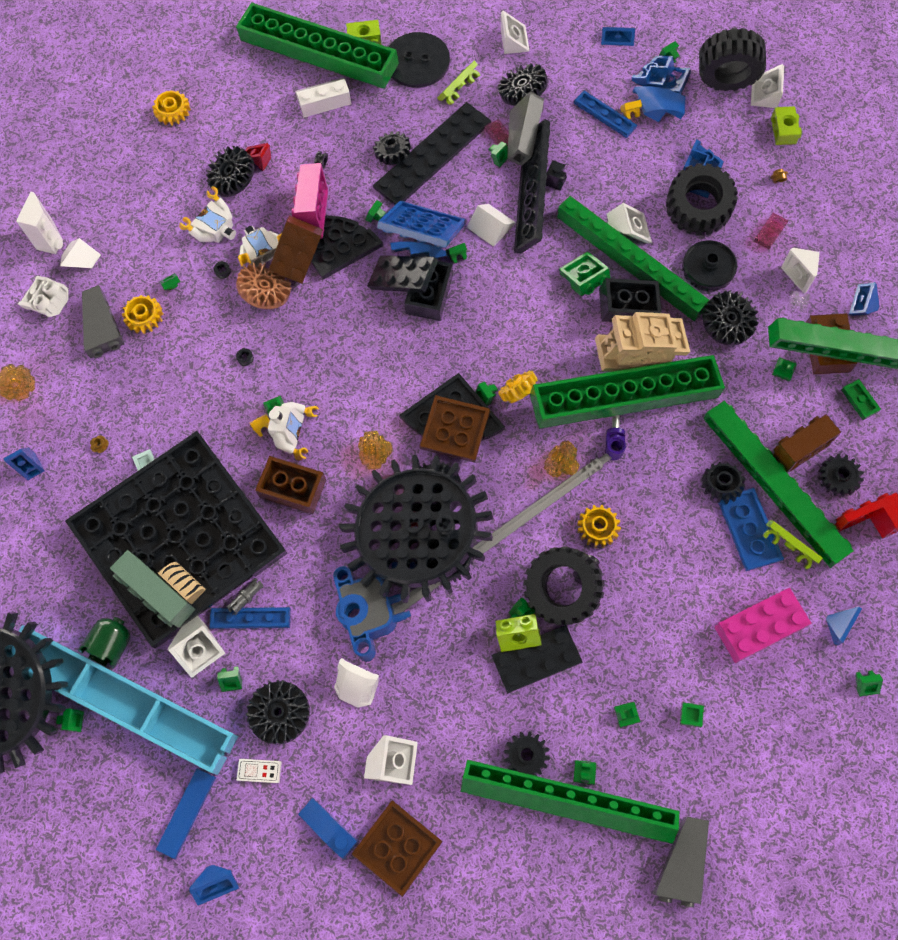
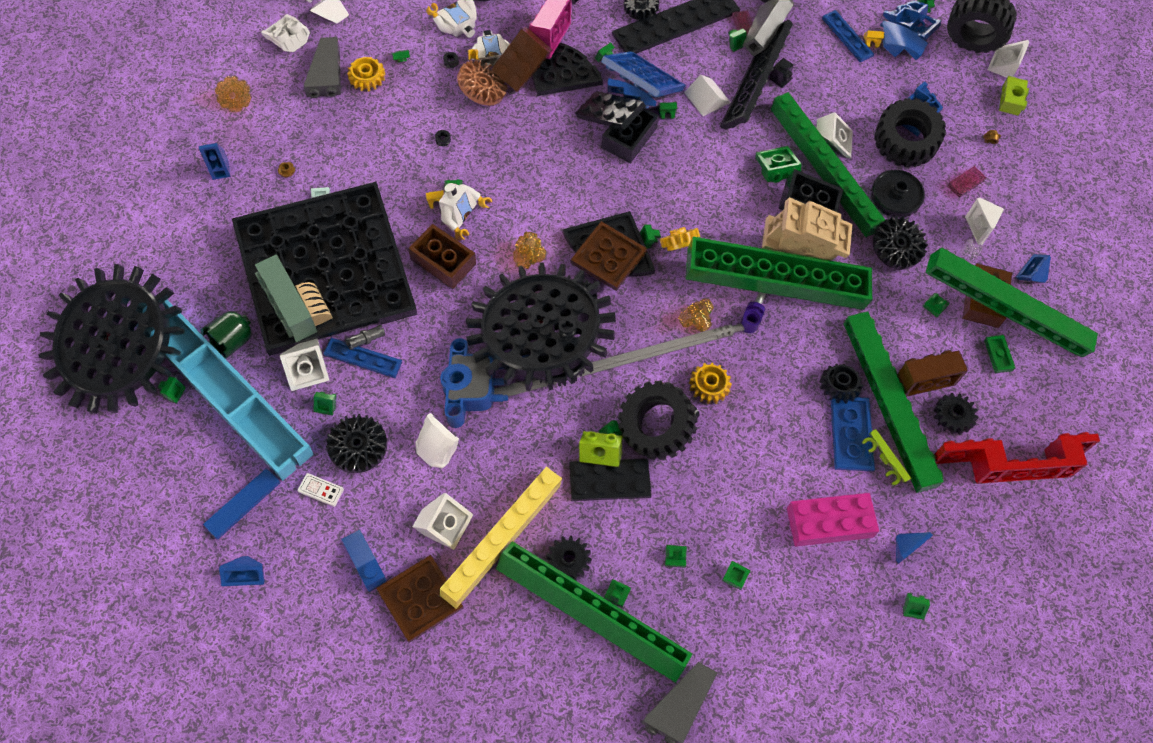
camera: 10 degrees right, 5 degrees down
(454, 759) = (500, 536): none -> light yellow brick

